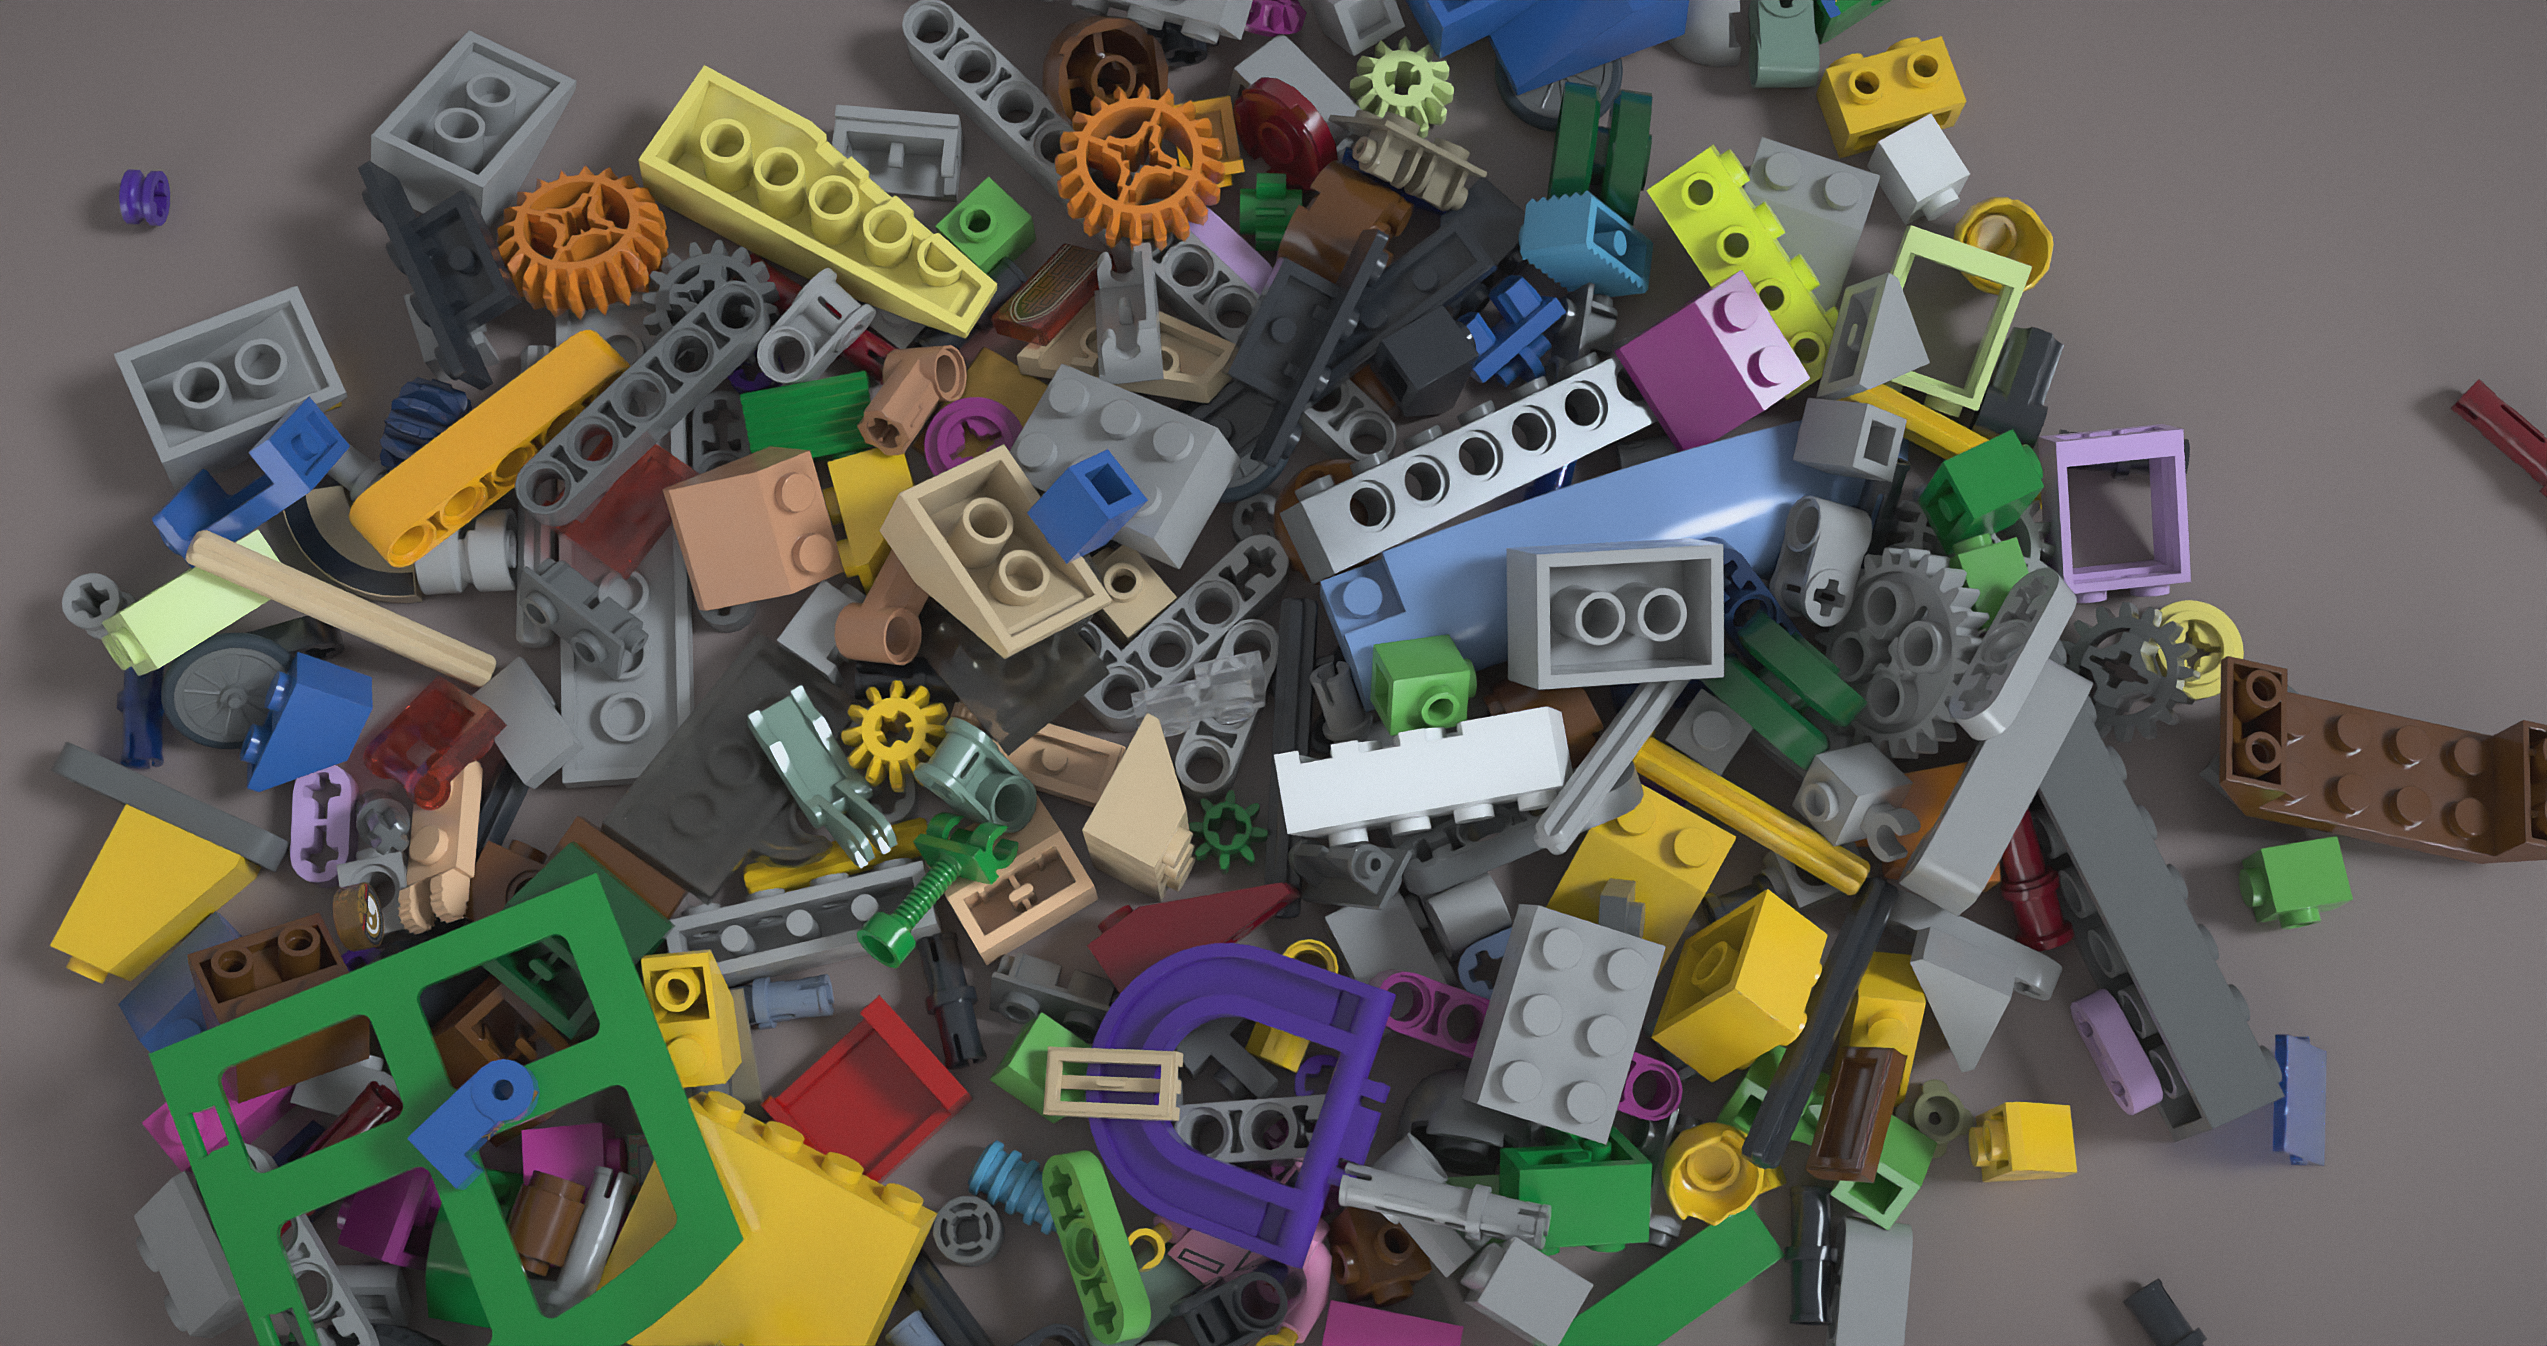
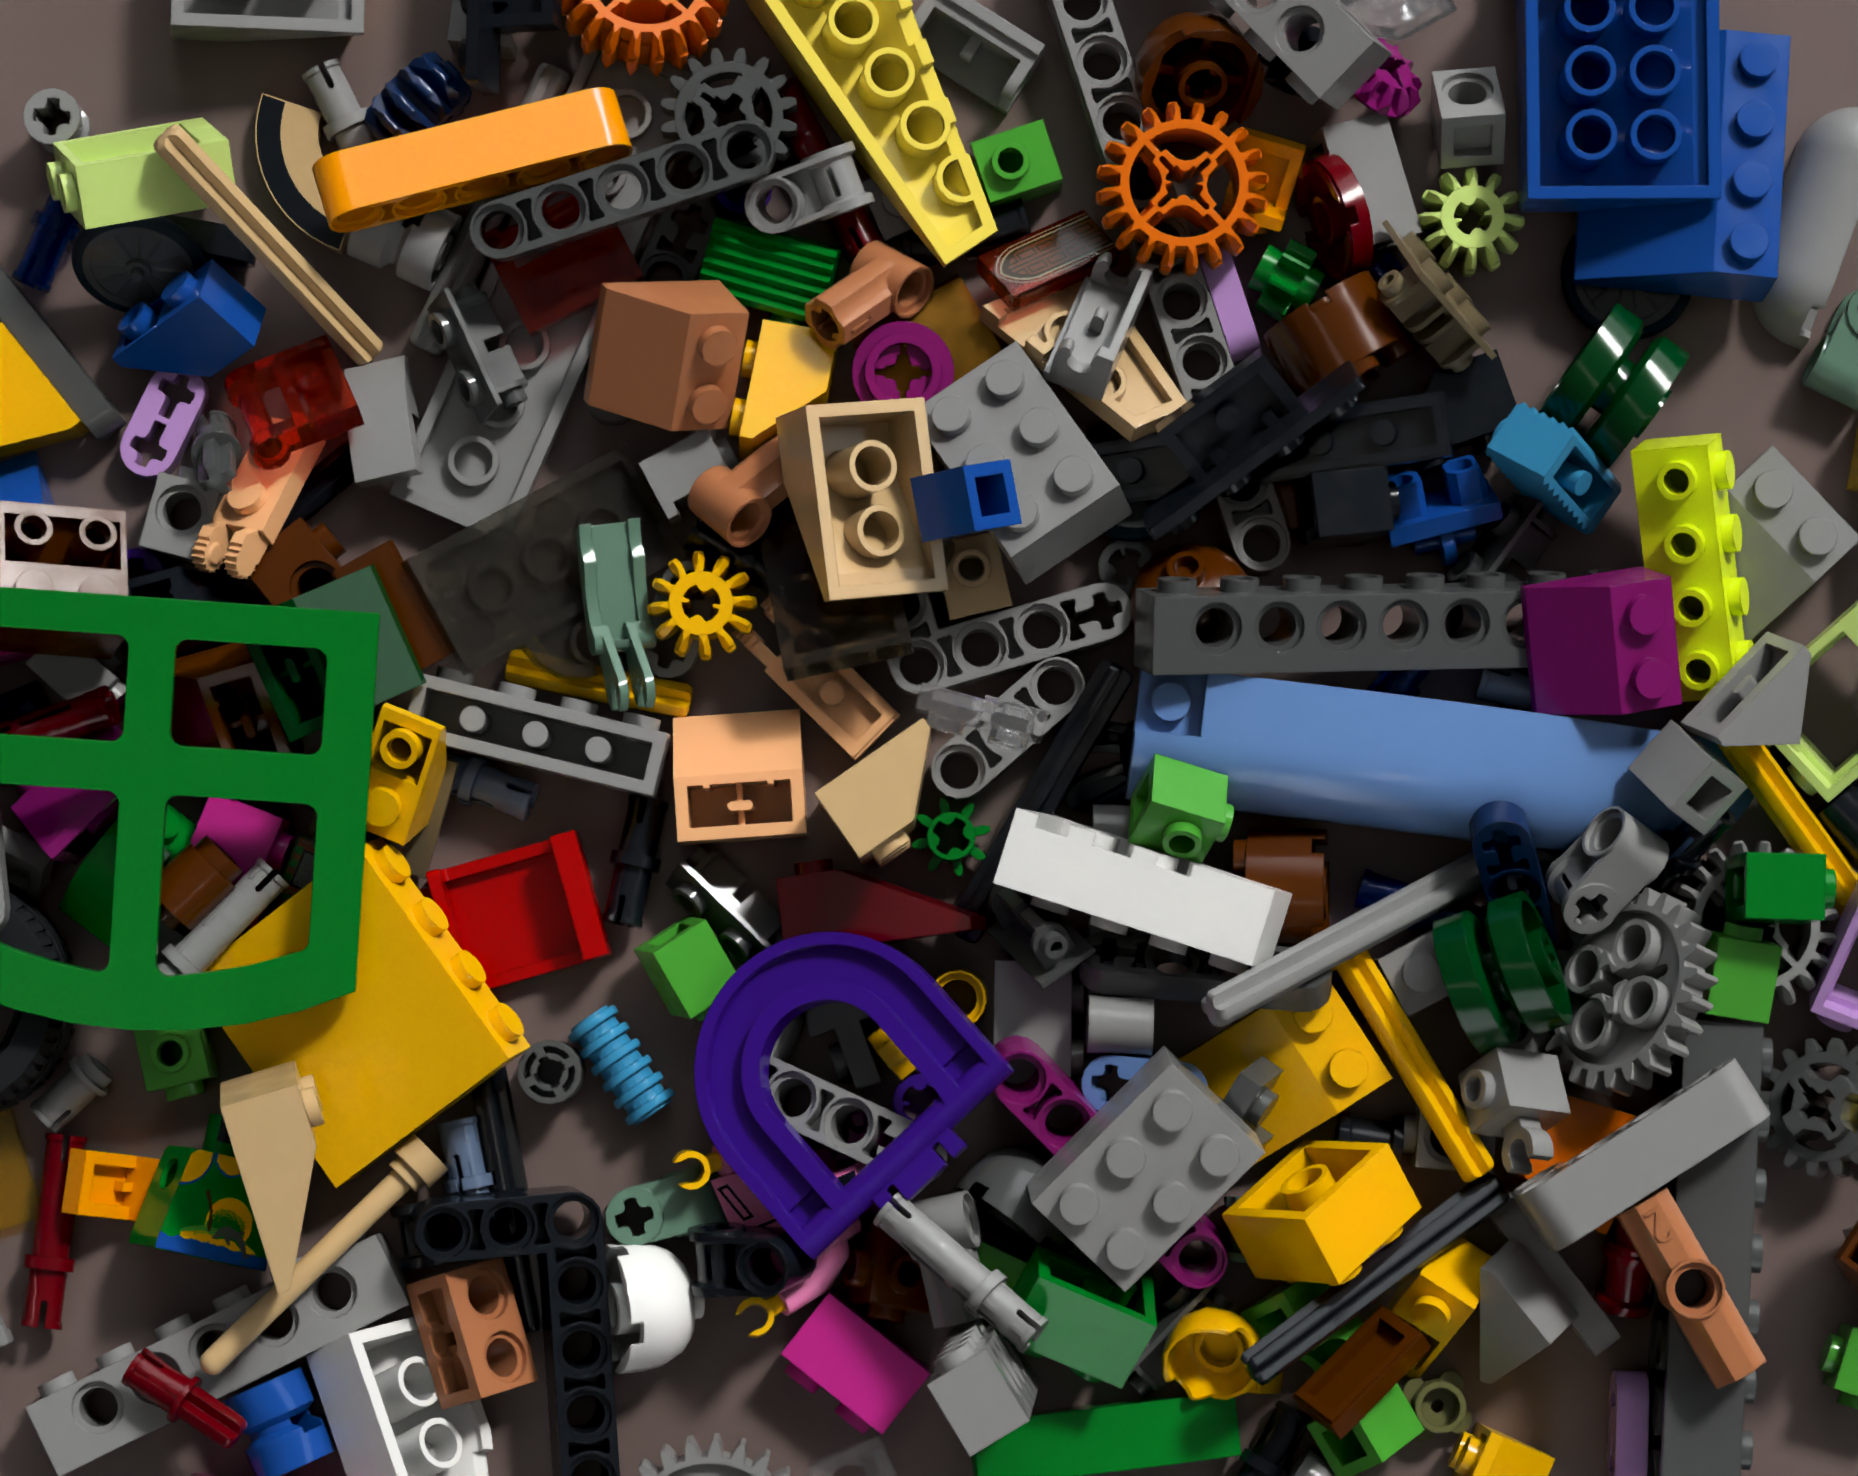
camera: 30 degrees right, 10 degrees up
(294, 461) = (242, 101): blue panel -> none
(358, 917) = (157, 533): clear orange tile -> none
(472, 1115) = (201, 769): blue leg -> none
(964, 856) = (693, 732): green bar -> none
(978, 779) = (753, 686): sand green piece -> none
(1110, 1286) = (644, 1183): bright green beam -> none
(1167, 1086) = (779, 1044): tan tile -> none
(1340, 704) = (1107, 778): light grey pin -> none
(1615, 613) = (1382, 835): light grey brick -> none
(1995, 688) = (1675, 1078): light grey beam -> none
(2148, 894) = (1712, 1324): none -> nougat piece

